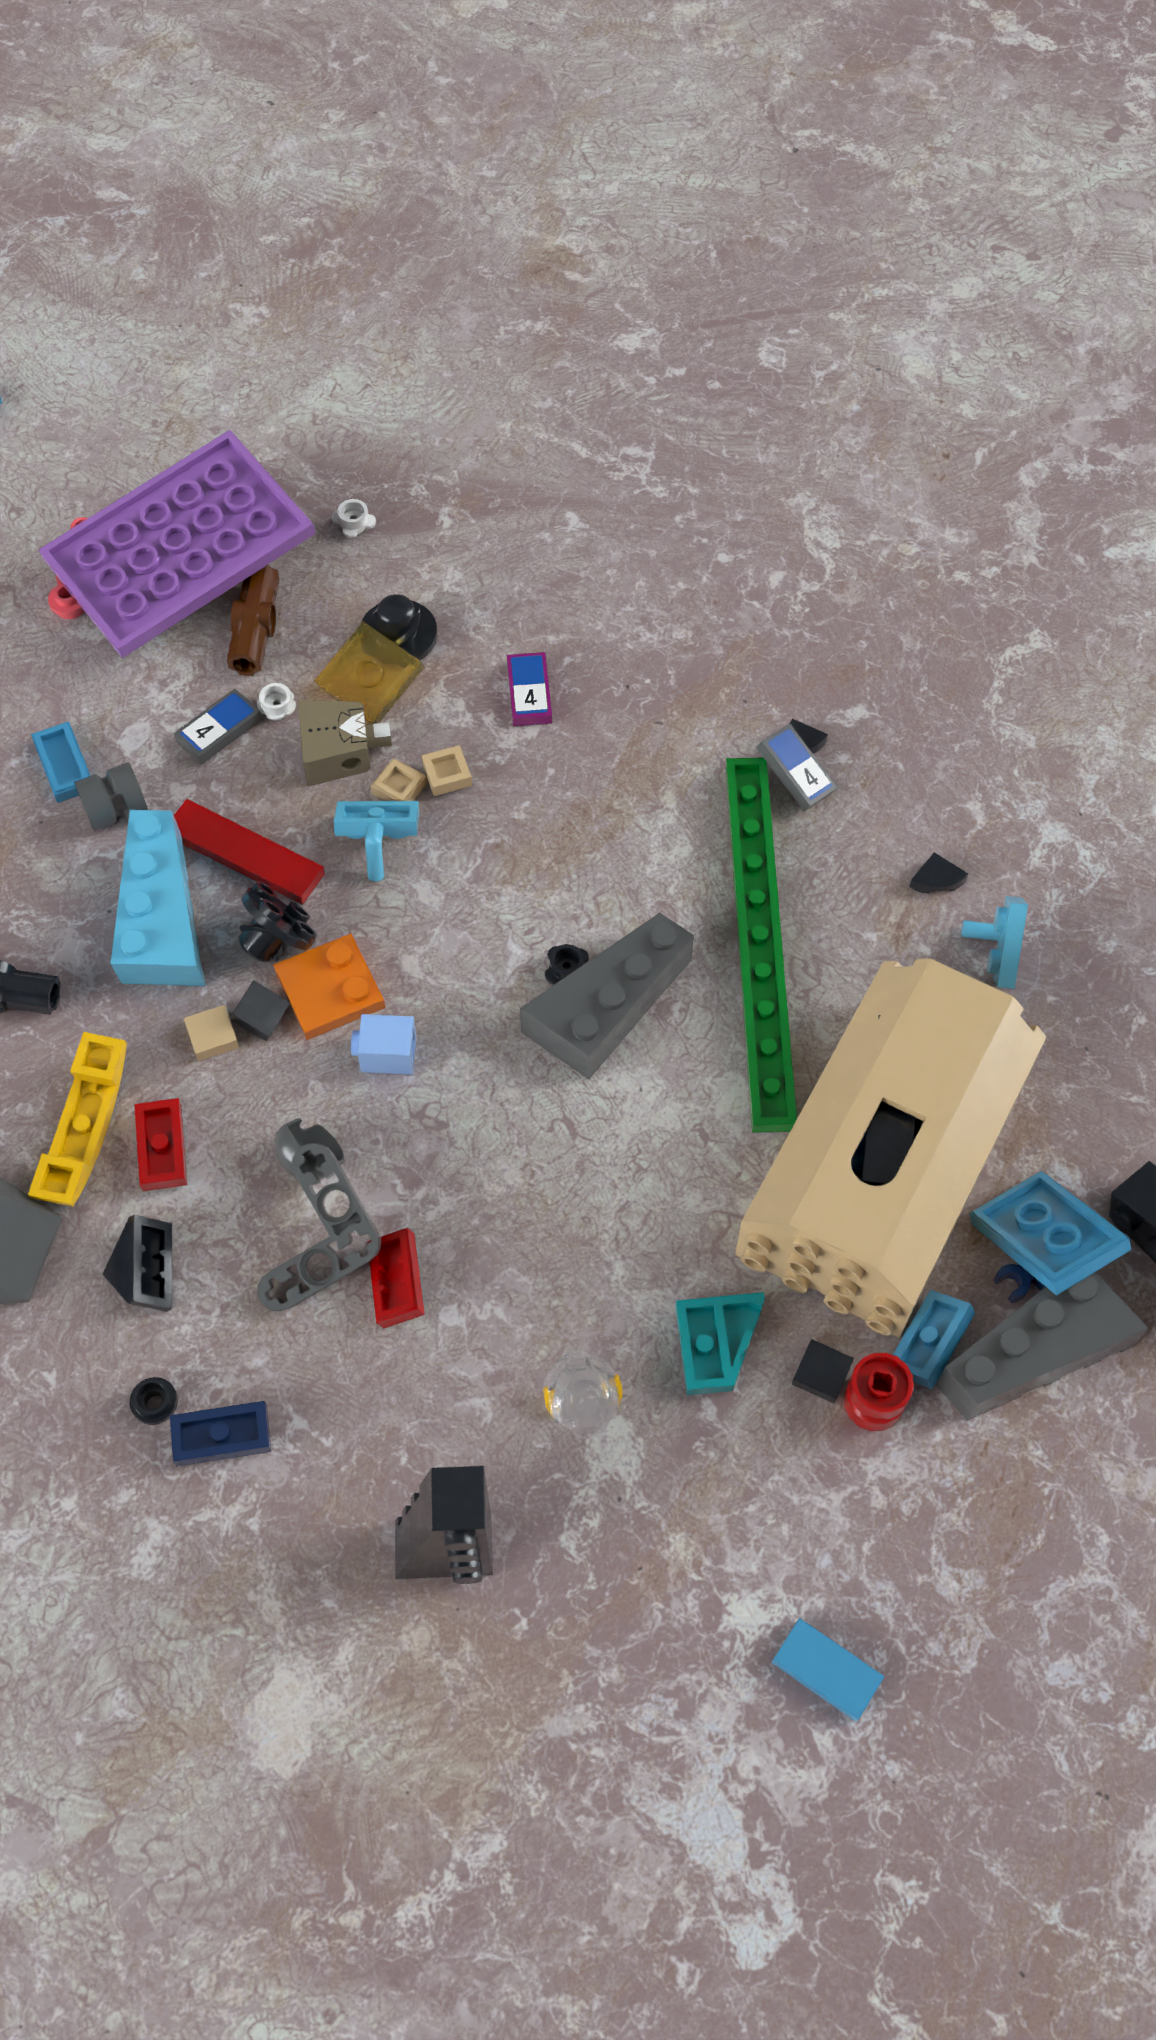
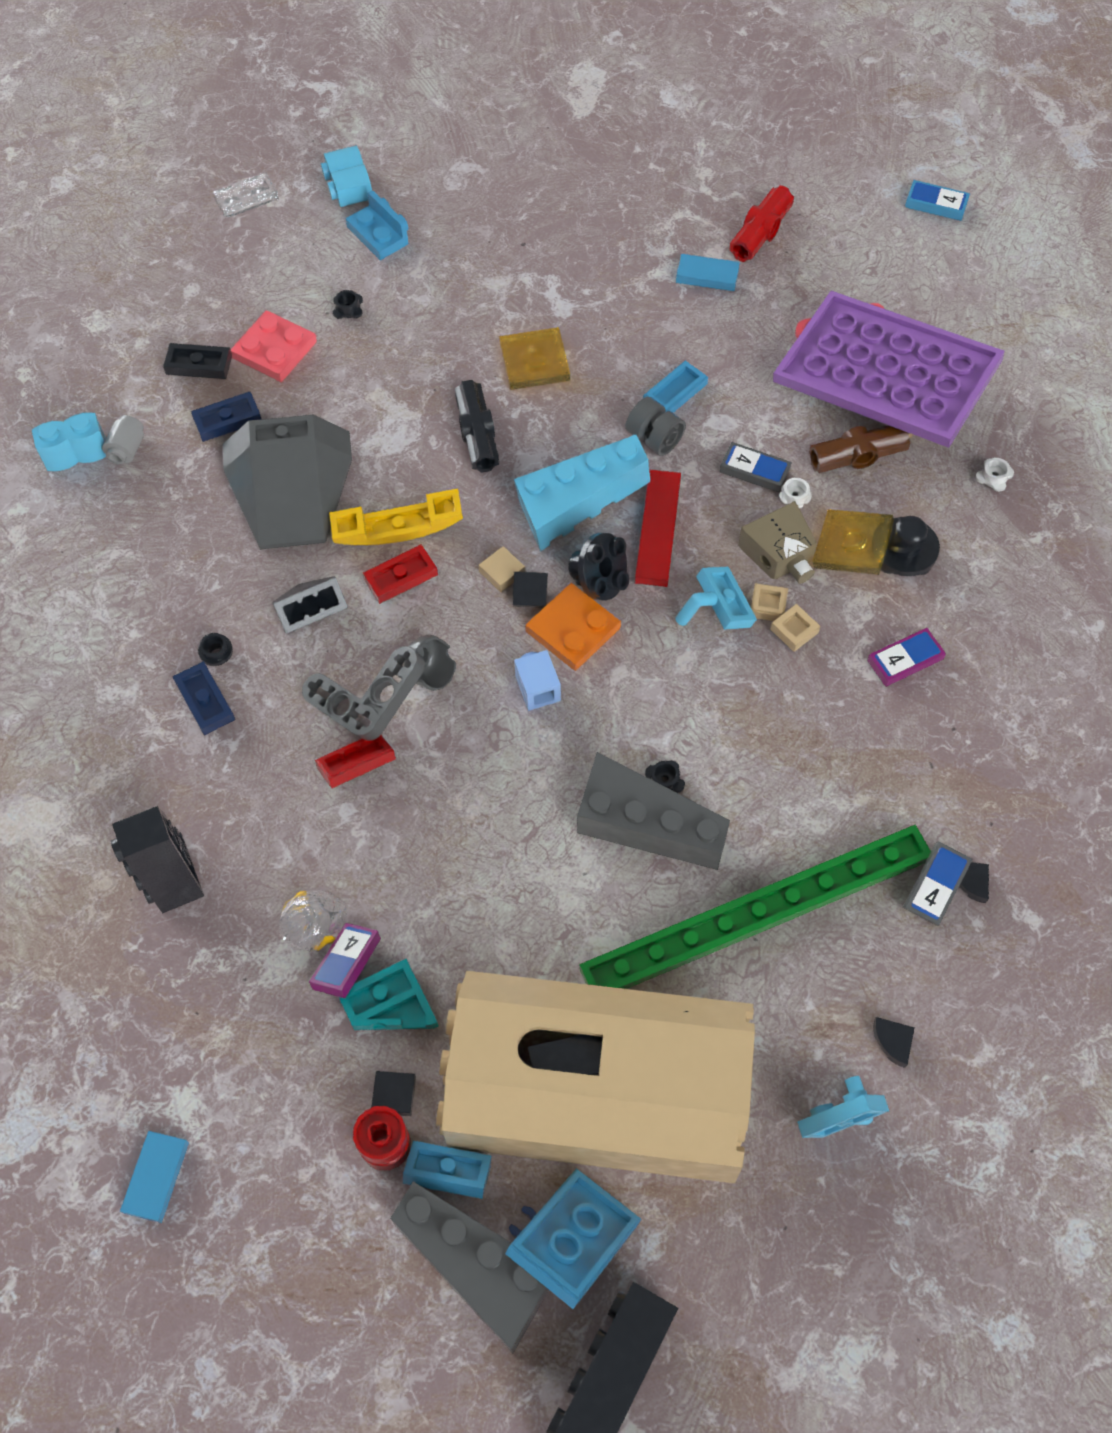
camera: 70 degrees right, 0 degrees up
(651, 1368) = (345, 960): none -> tile

